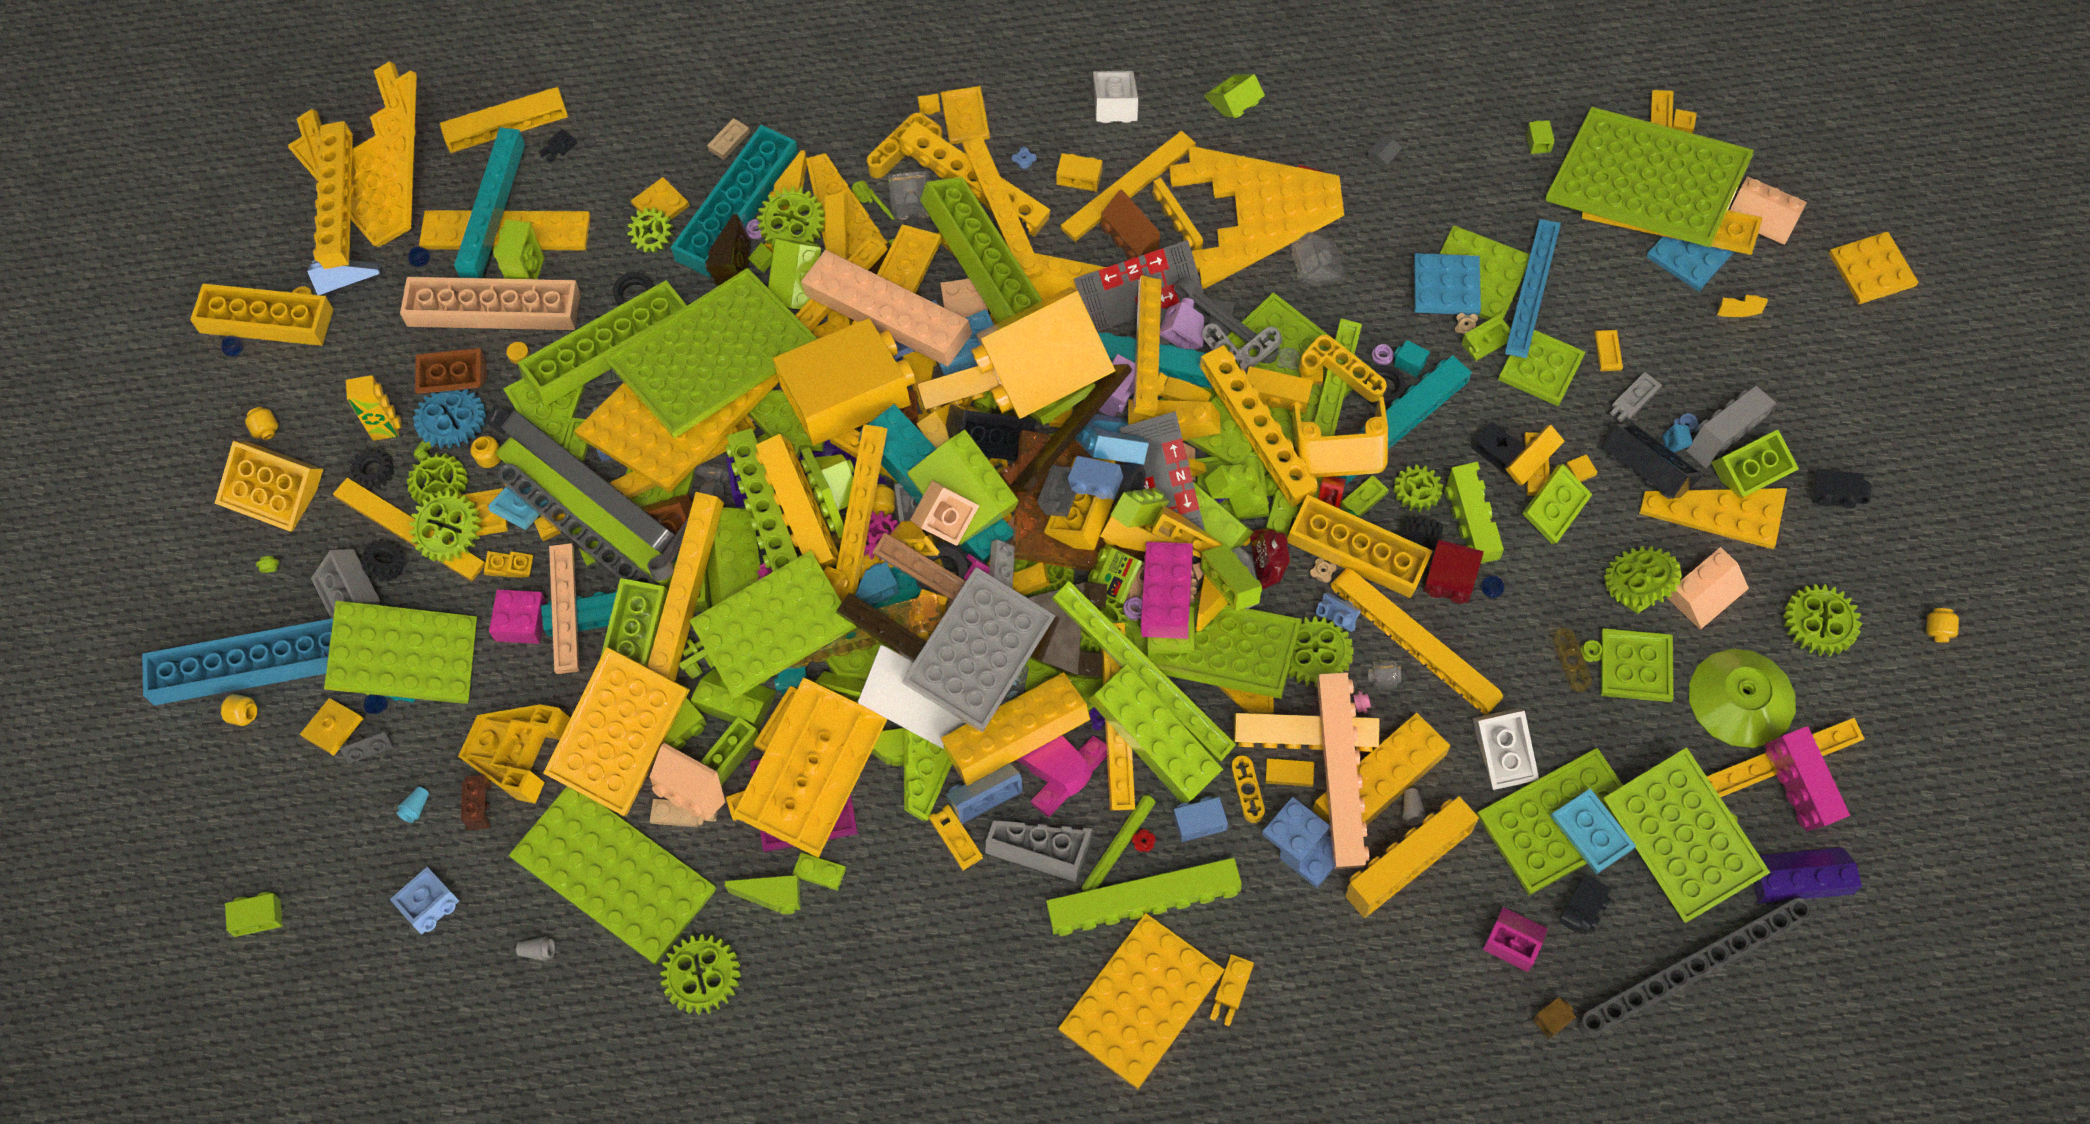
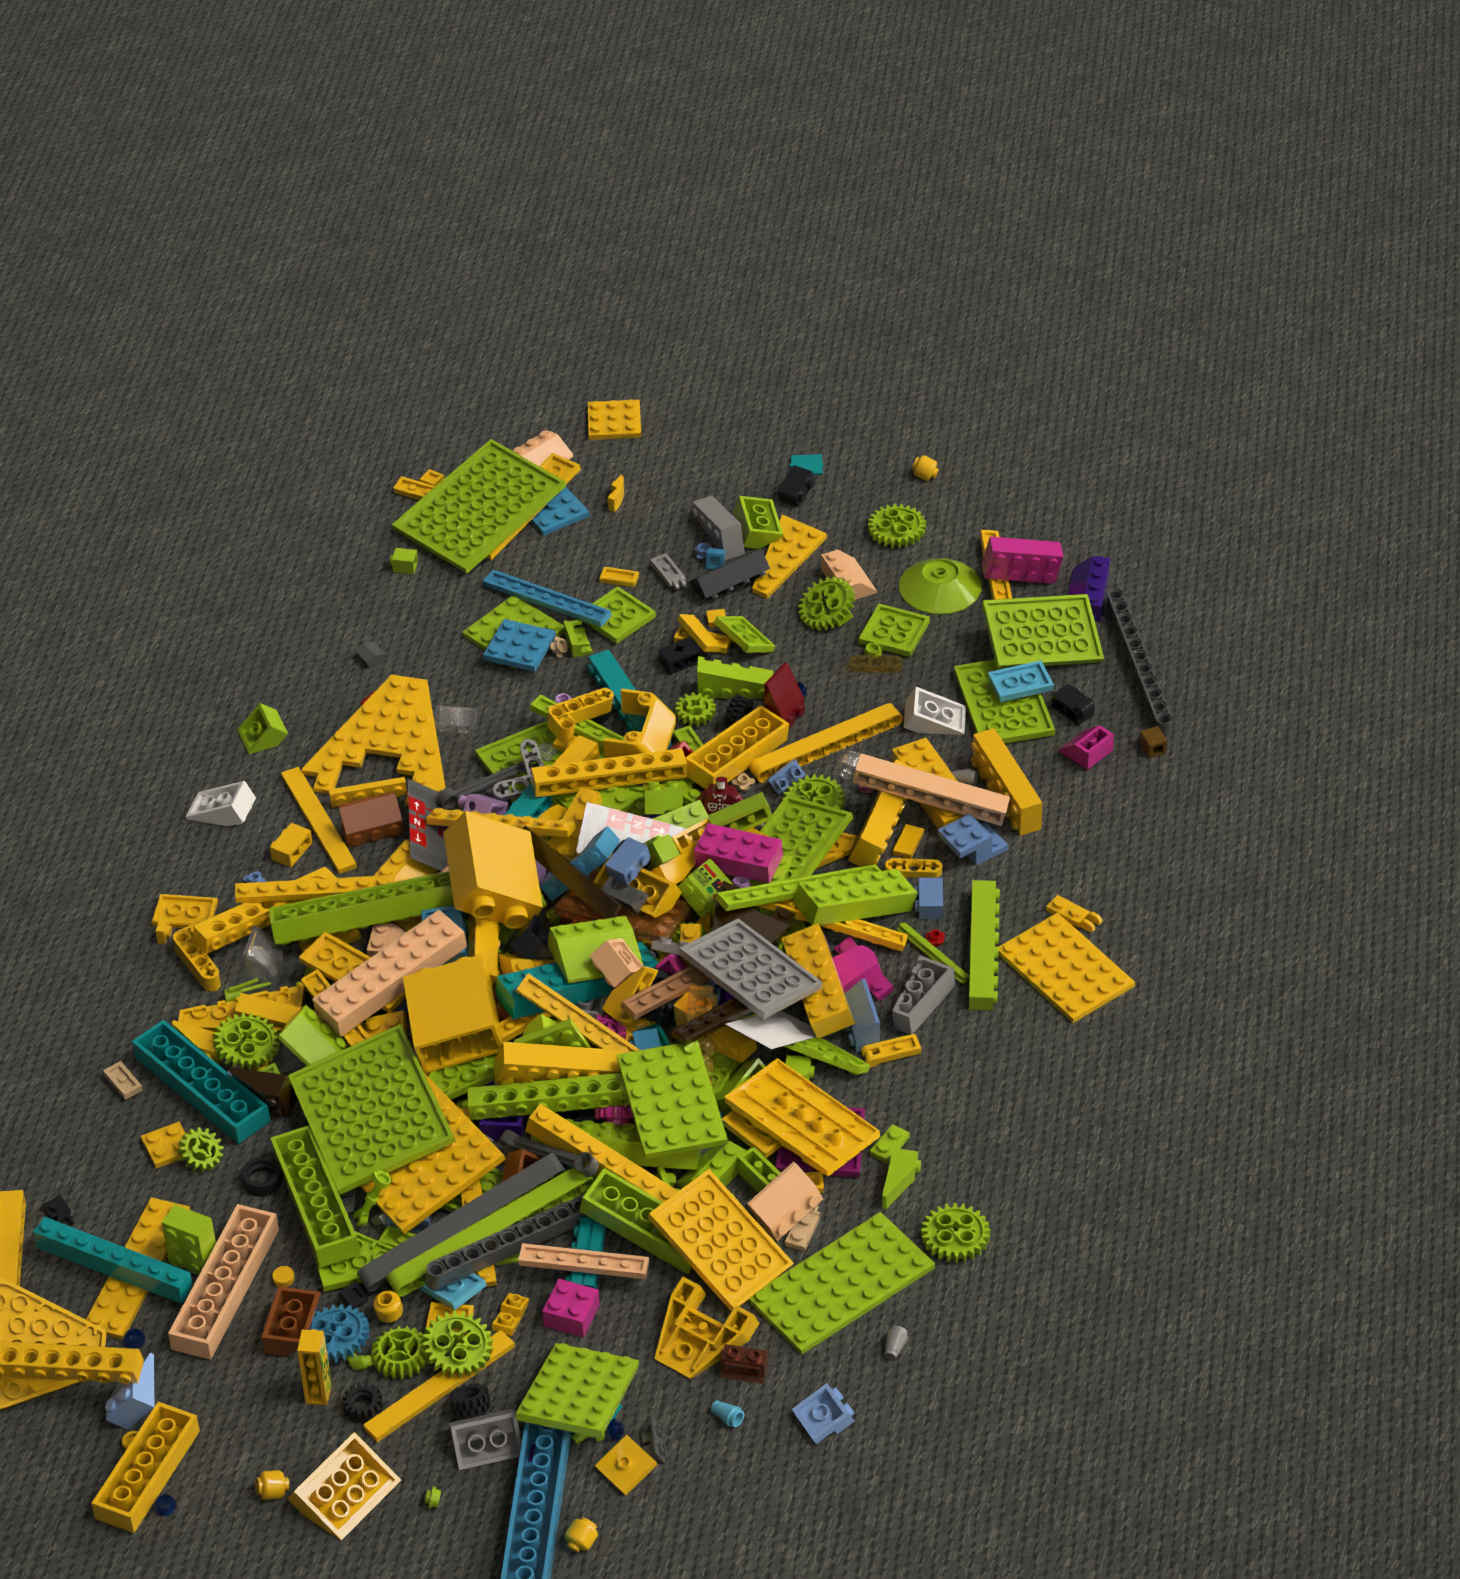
camera: 75 degrees left, 20 degrees down
(253, 914) = (793, 1543): lime brick -> none
(608, 390) = (381, 1181): none -> lime piece
(1411, 358) = (576, 683): teal brick -> none
(1892, 492) = (809, 462): none -> teal piece

